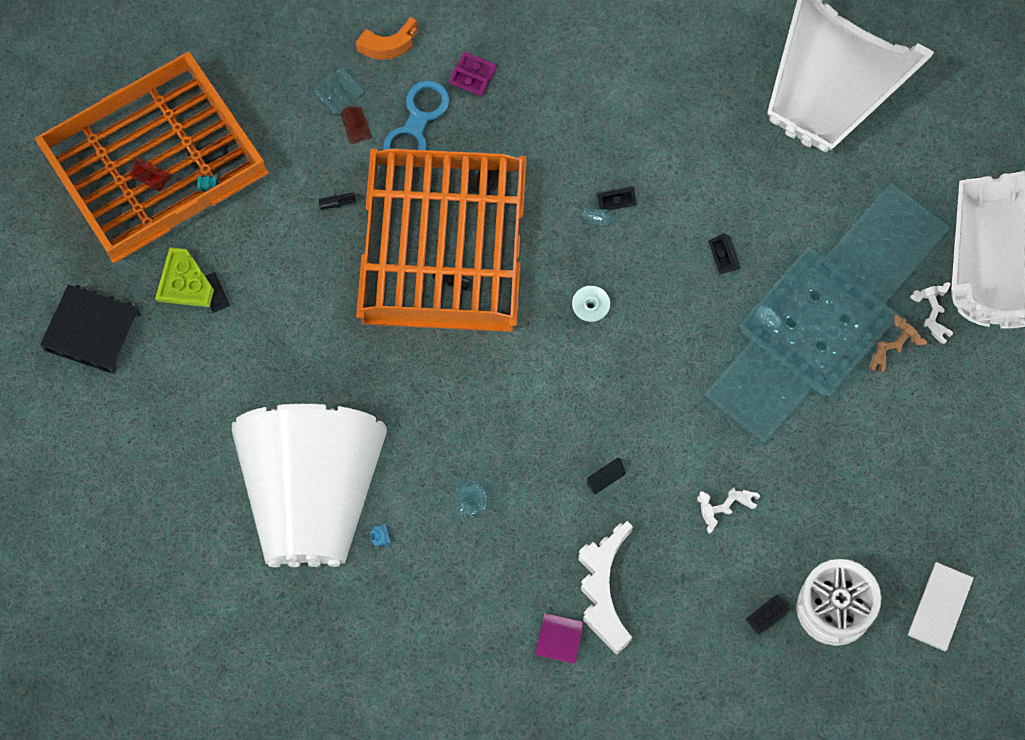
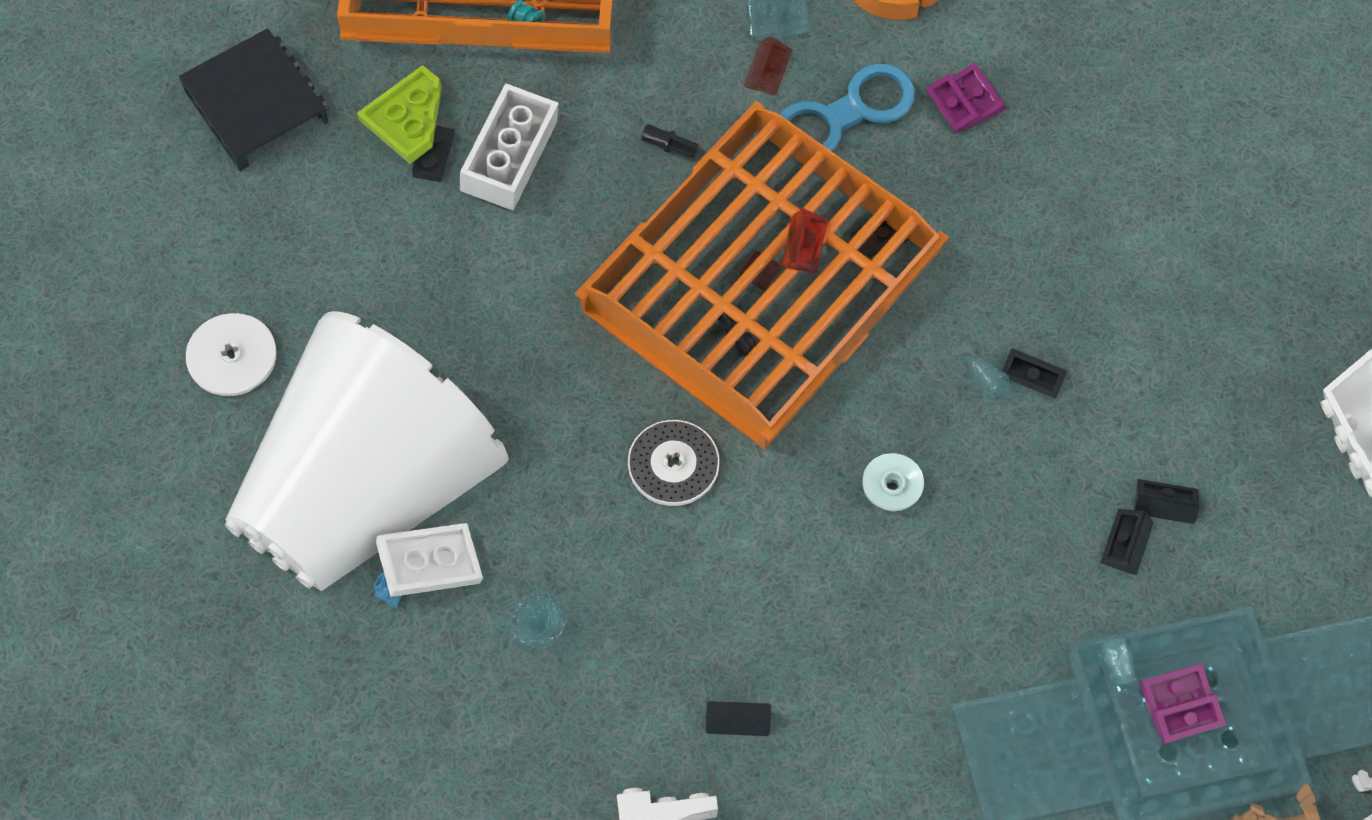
camera: 35 degrees right, 5 degrees down
(196, 489) = (253, 352): none -> white piece
(255, 261) = (508, 147): none -> white brick
(390, 507) = (428, 559): none -> white plate
(433, 239) = (766, 275): none -> clear red tile
(457, 208) = (804, 241): none -> clear red slope
(486, 375) = (681, 483): none -> piece
(728, 220) = (1167, 501): none -> black slope
(811, 317) = (1182, 703): none -> magenta slope

